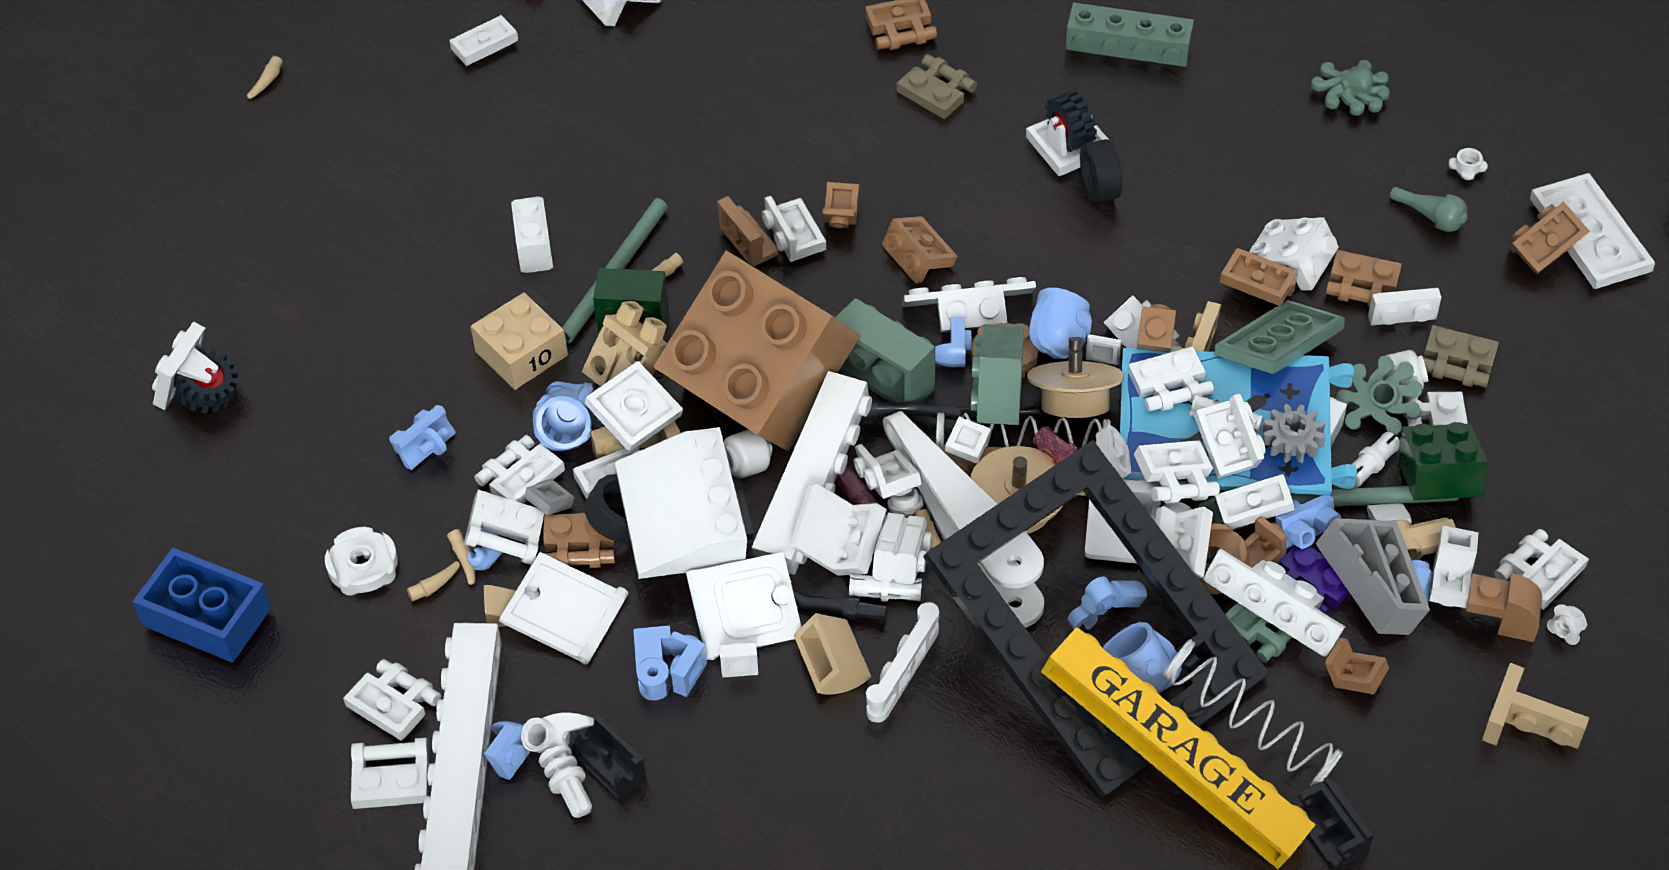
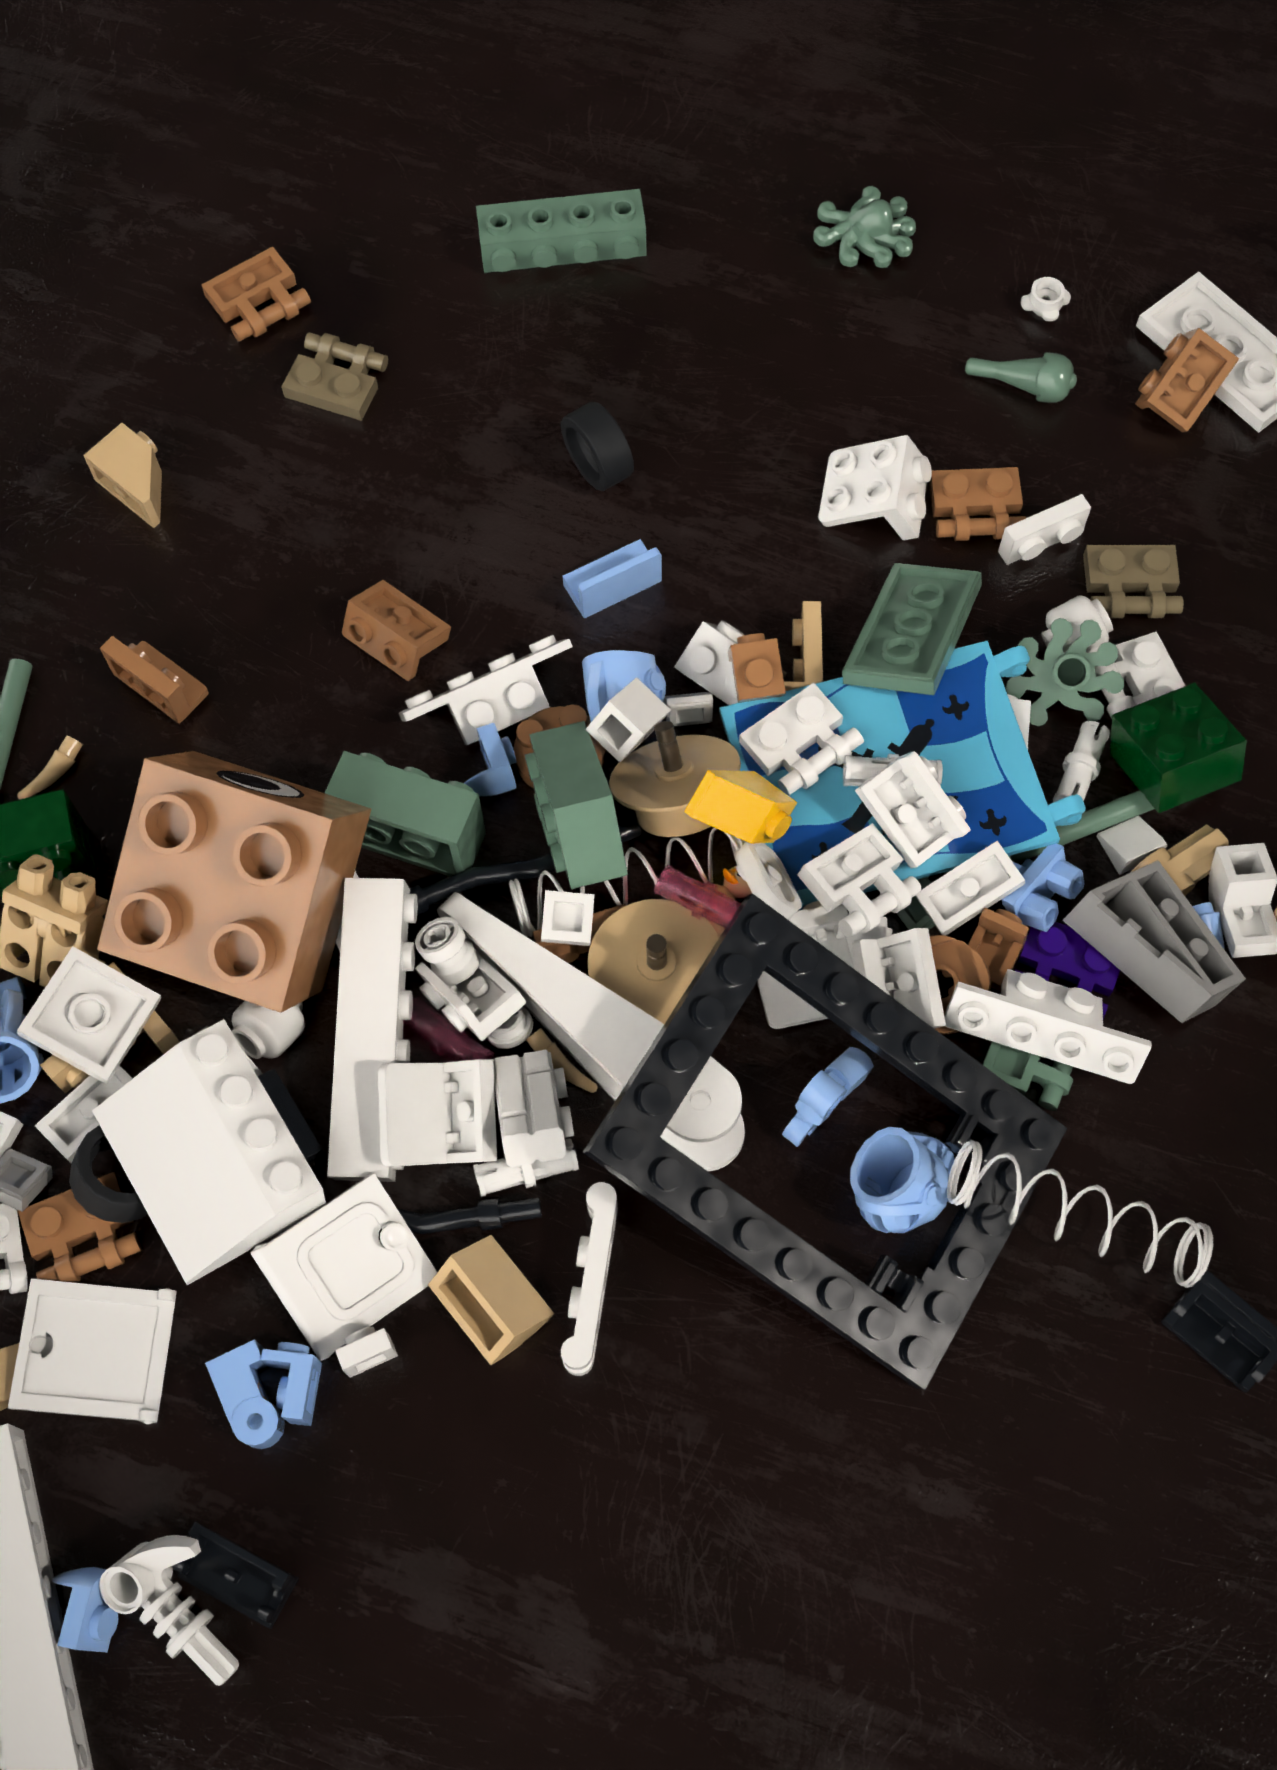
camera: 20 degrees left, 15 degrees up
(774, 107) = (129, 471): none -> tan slope
(793, 228) = (218, 649): white bracket -> none
(841, 204) = (269, 594): medium nougat bracket -> none
(880, 440) = (445, 947): none -> white wheel
(1051, 330) = (627, 719): none -> white brick
(1064, 131) = (531, 402): plate -> none
(1083, 258) = (613, 577): none -> light blue panel
(1110, 400) = (742, 805): none -> yellow slope
(1178, 747) = (1005, 1304): yellow brick -> none
(1259, 277) = (852, 543): medium nougat bracket -> none
(1293, 433) = (1006, 773): light grey gear -> none
(1355, 670) = (1175, 1088): medium nougat bracket -> none

